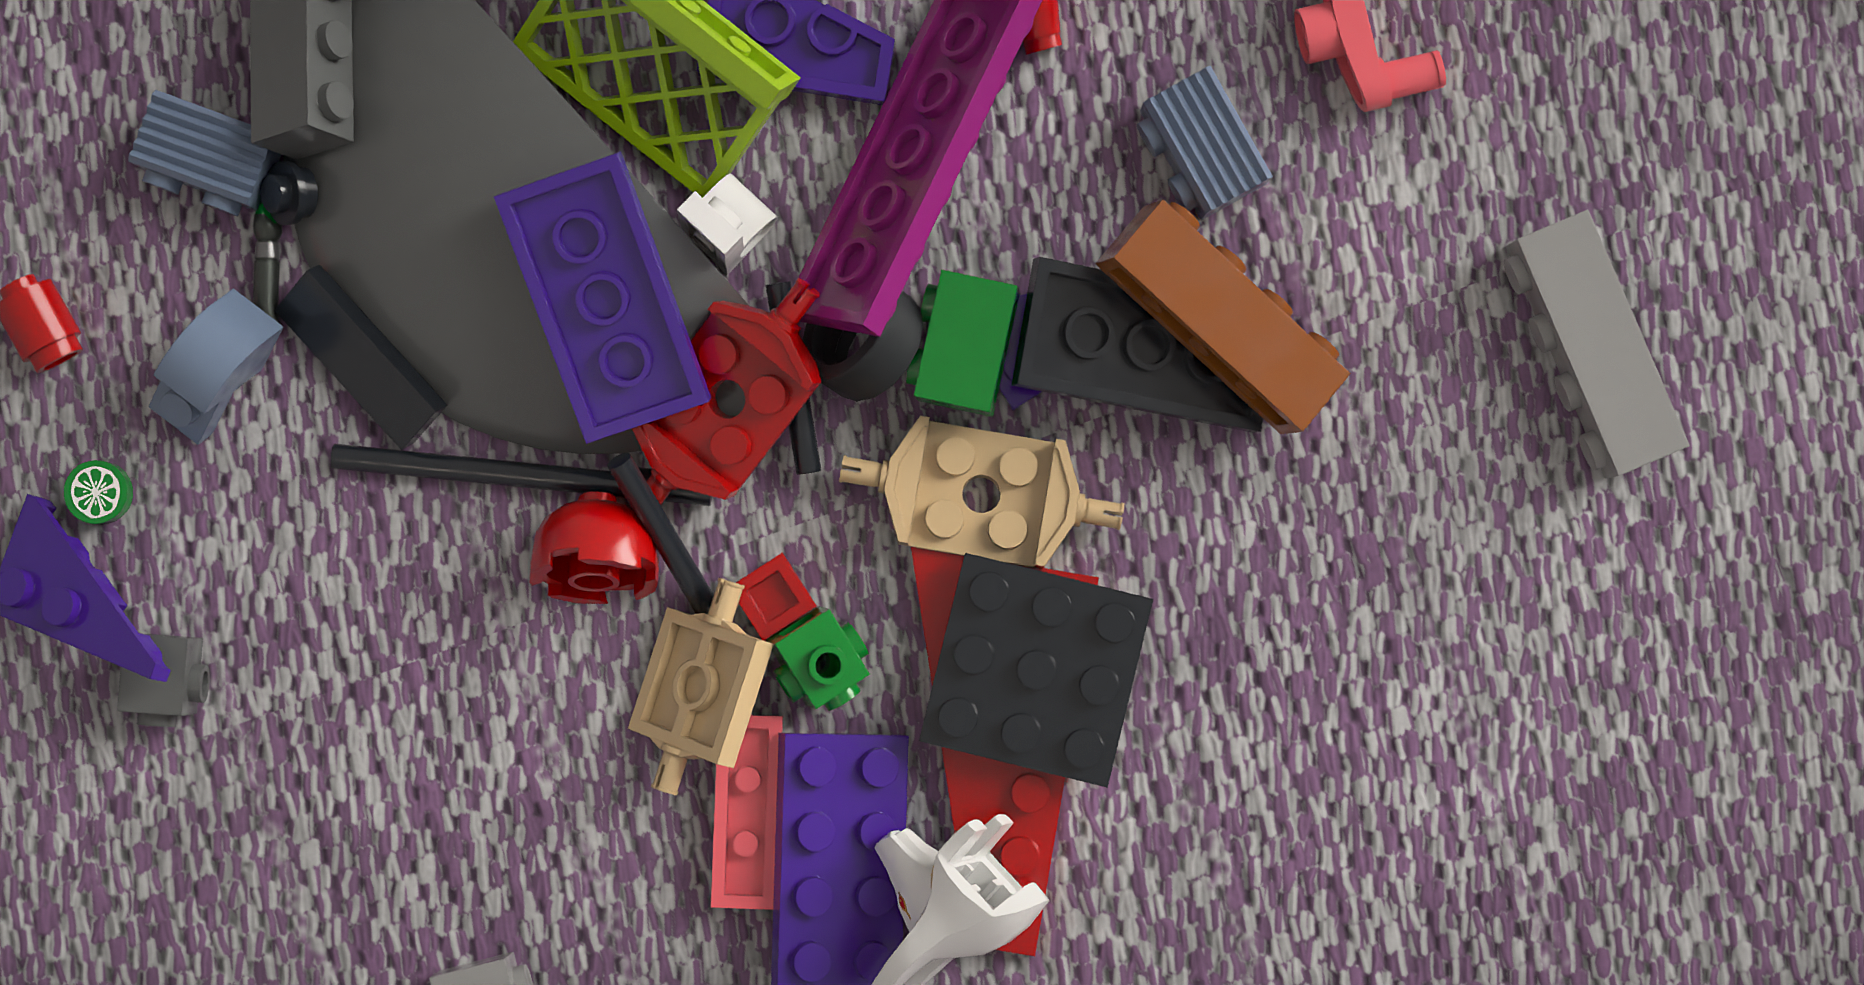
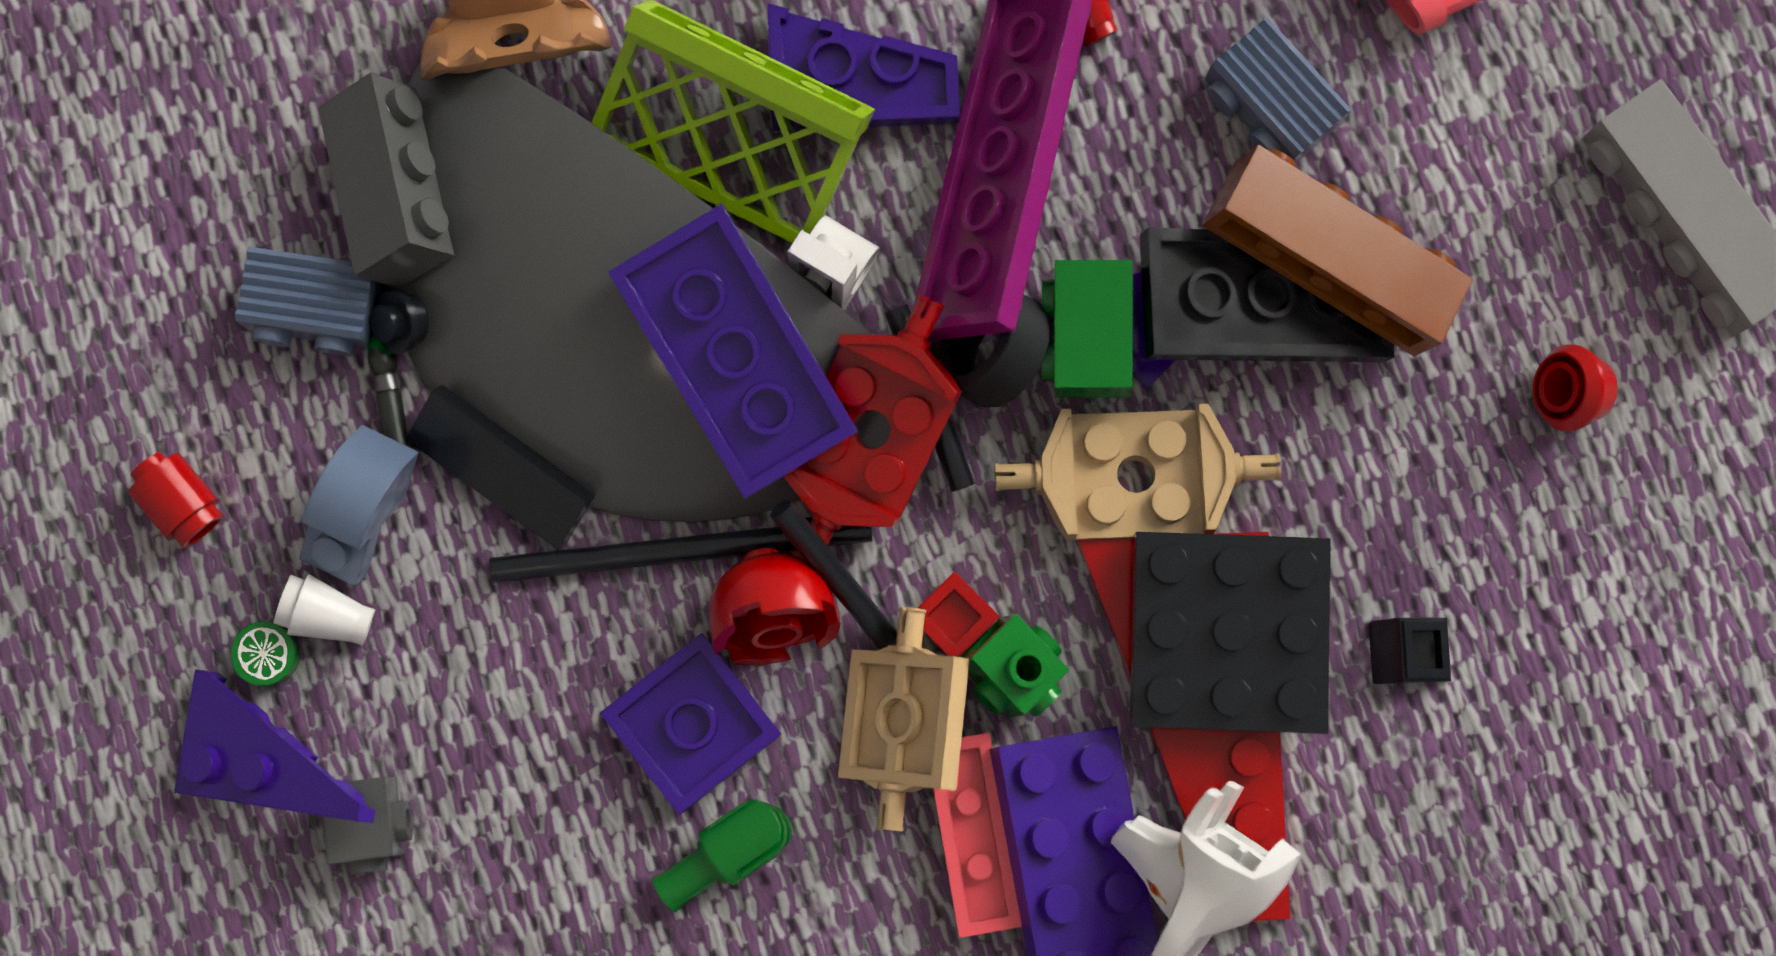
camera: 15 degrees left, 5 degrees down
(159, 463) = (322, 612): none -> white cone
(495, 647) = (690, 724): none -> dark purple plate
(505, 778) = (726, 852): none -> green arm
(1212, 722) = (1409, 650): none -> black slope
(1430, 499) = (1573, 388): none -> red cone

